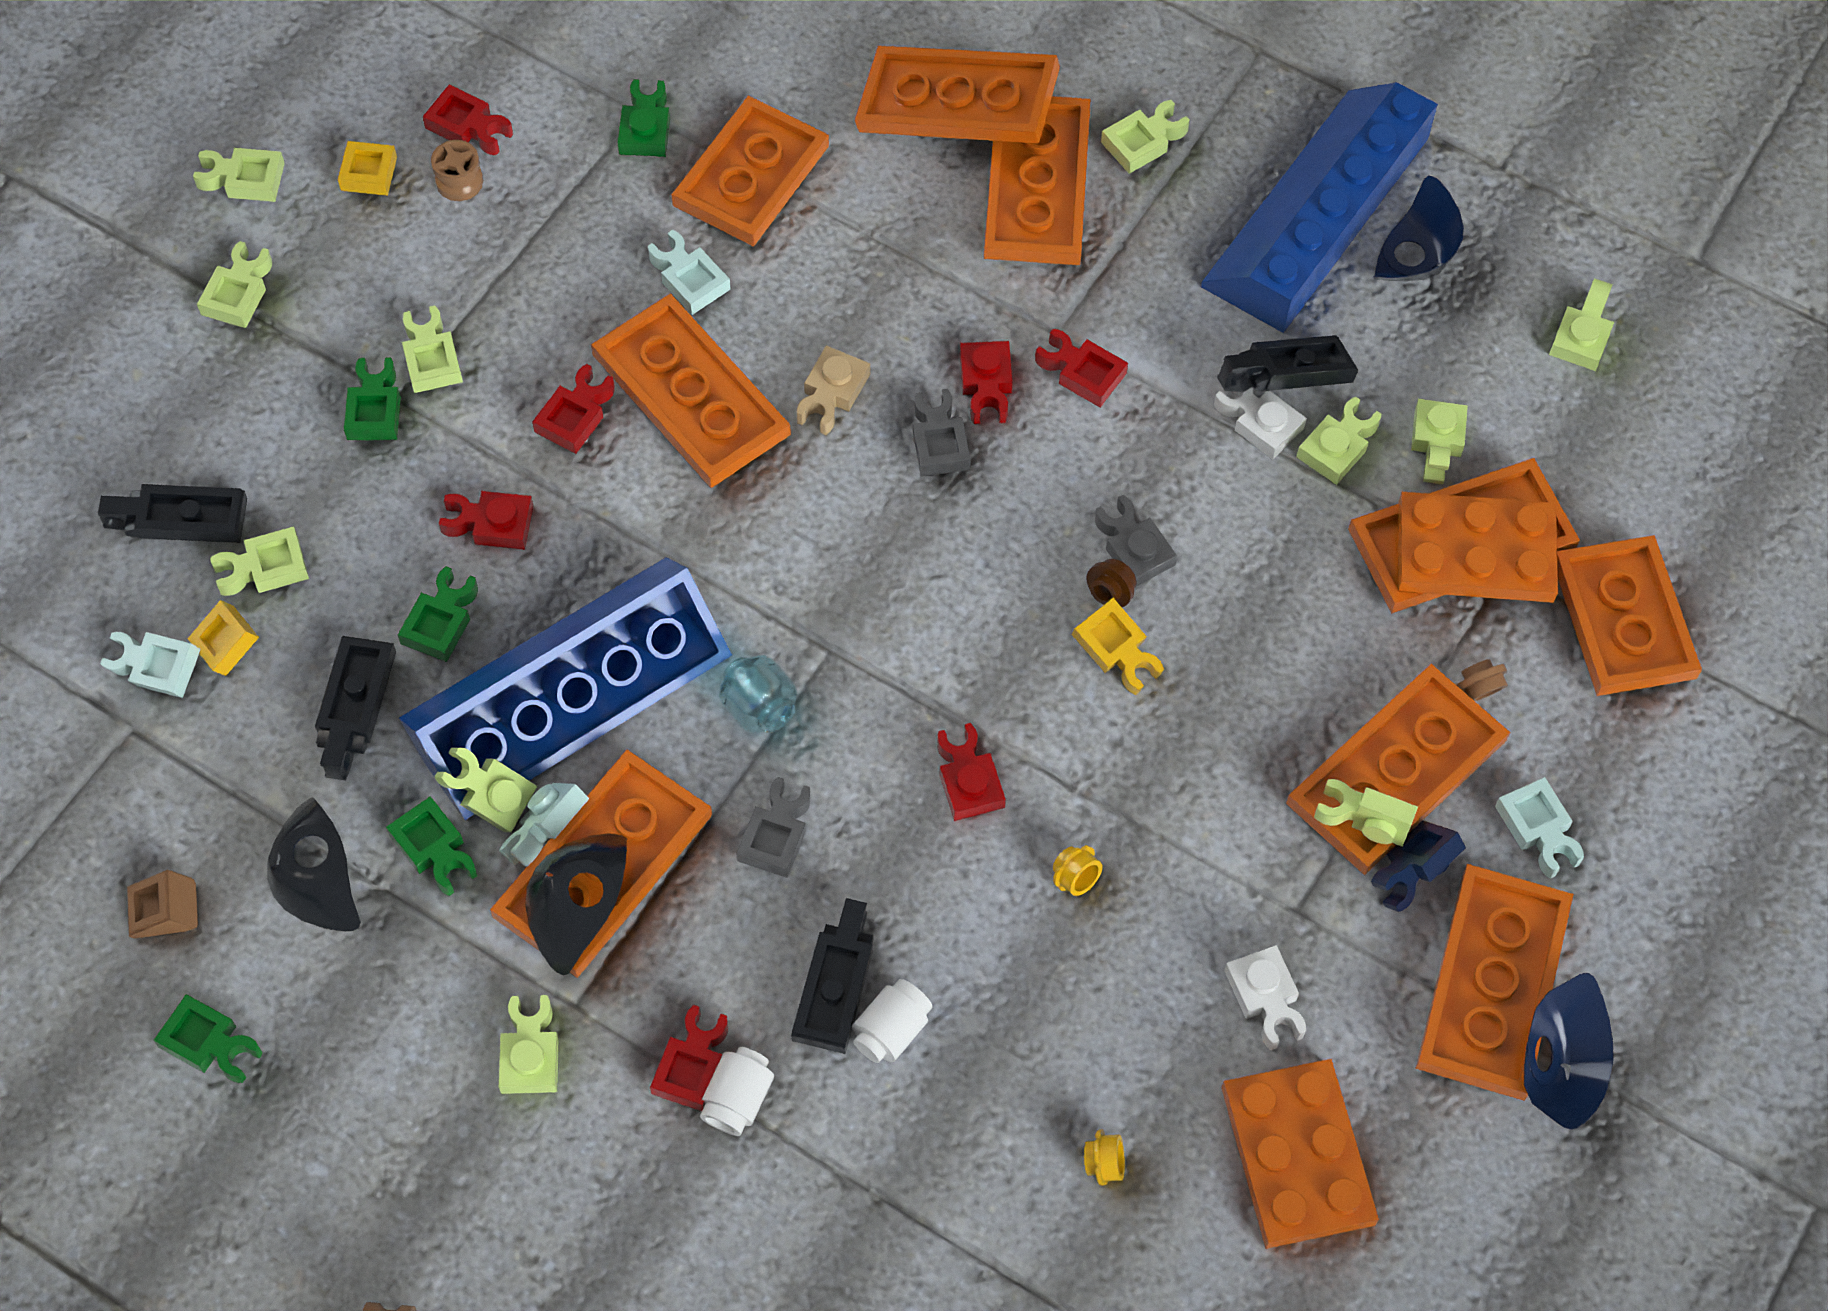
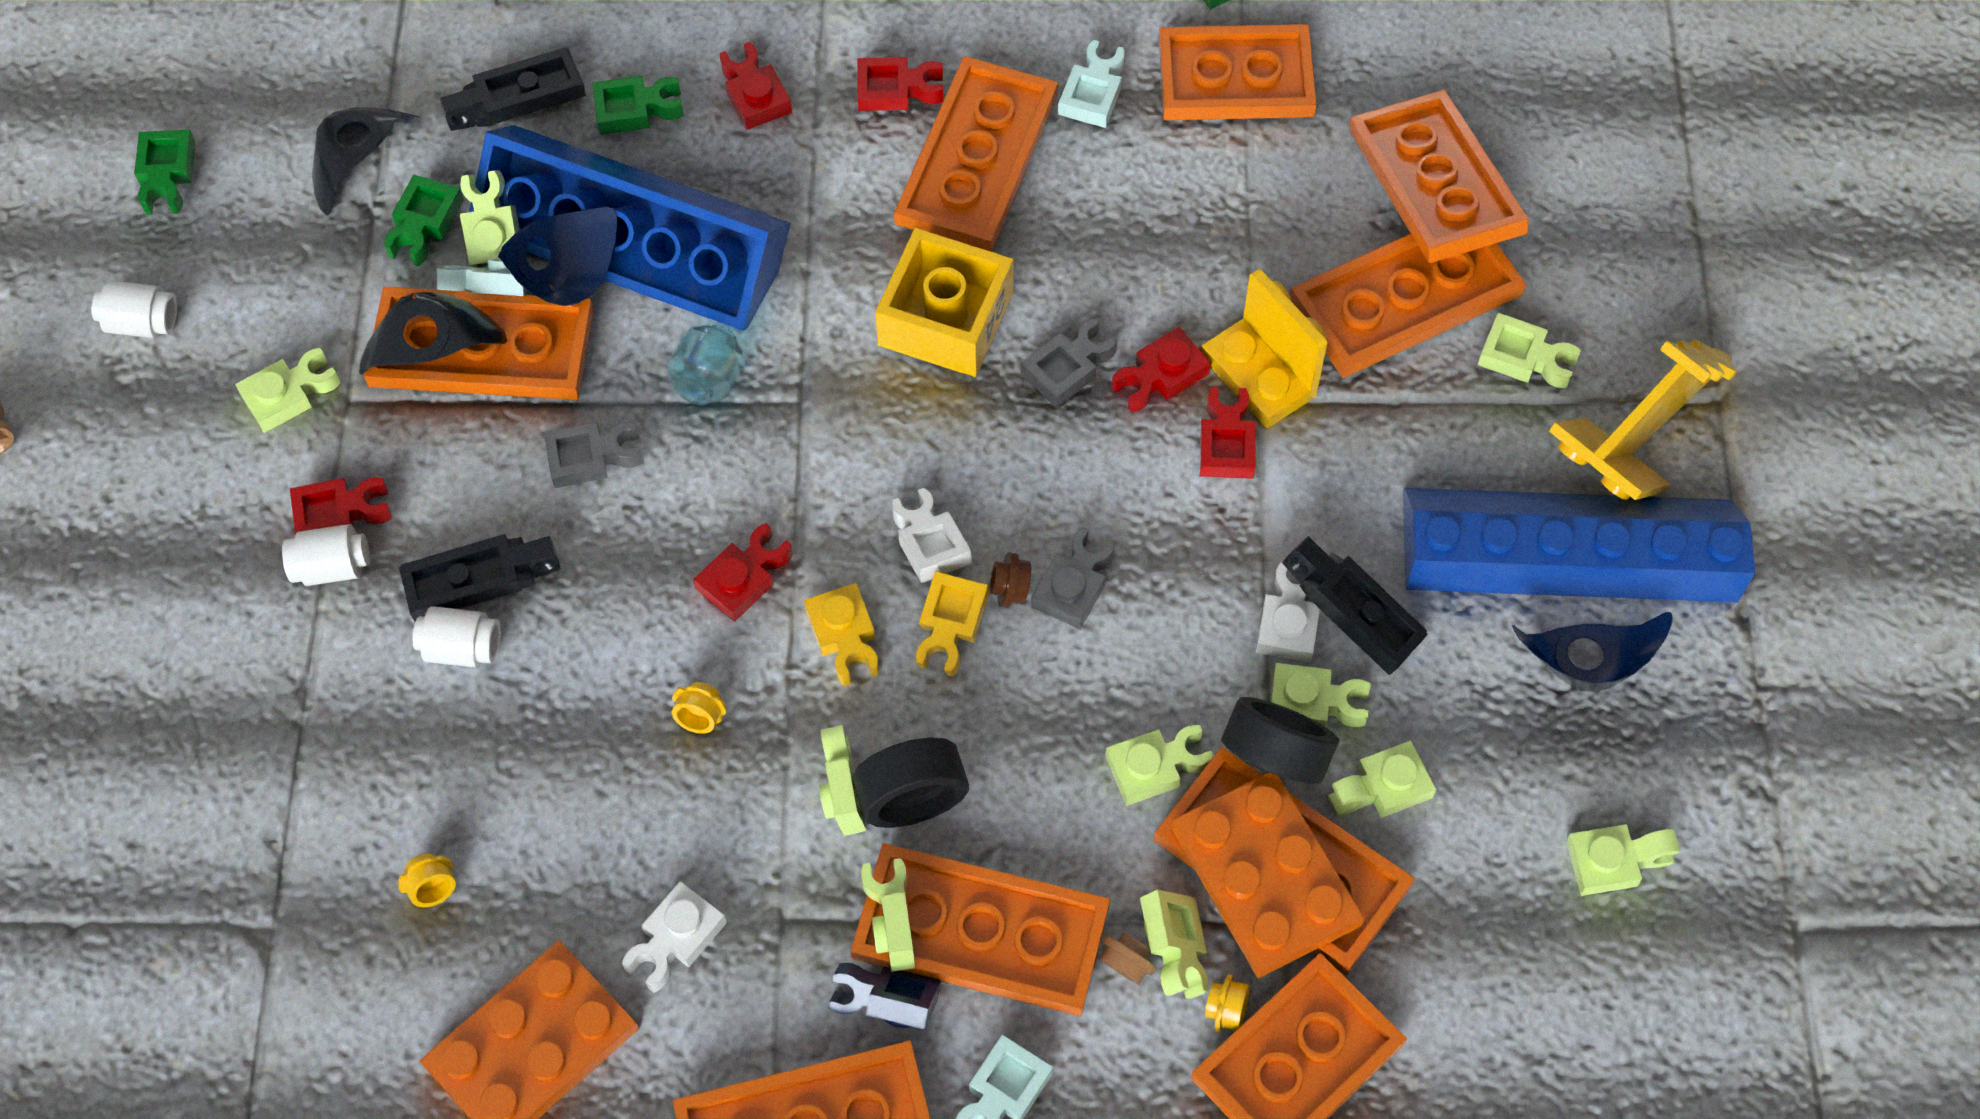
camera: 60 degrees right, 0 degrees up
(162, 905) = (266, 77): medium nougat slope -> none
(352, 1136) = (134, 309): none -> white brick
(582, 735) = (579, 254): none -> dark blue piece
(830, 485) = (945, 302): none -> yellow brick
(831, 384) = (1069, 256): tan plate -> none
(1034, 290) = (1270, 352): none -> yellow bracket
(1038, 621) = (930, 540): none -> white plate
(1064, 727) = (843, 627): none -> yellow plate
(1223, 800) = (839, 794): none -> yellowish green plate
(1257, 742) = (910, 782): none -> black tyre
(1261, 74) = (1613, 454): none -> yellow piece
(1326, 578) = (1150, 766): none -> yellowish green plate
(1379, 474) = (1280, 740): none -> black tyre
(1479, 638) = (1176, 935): none -> yellowish green plate
(1556, 636) = (1227, 1003): none -> yellow plate

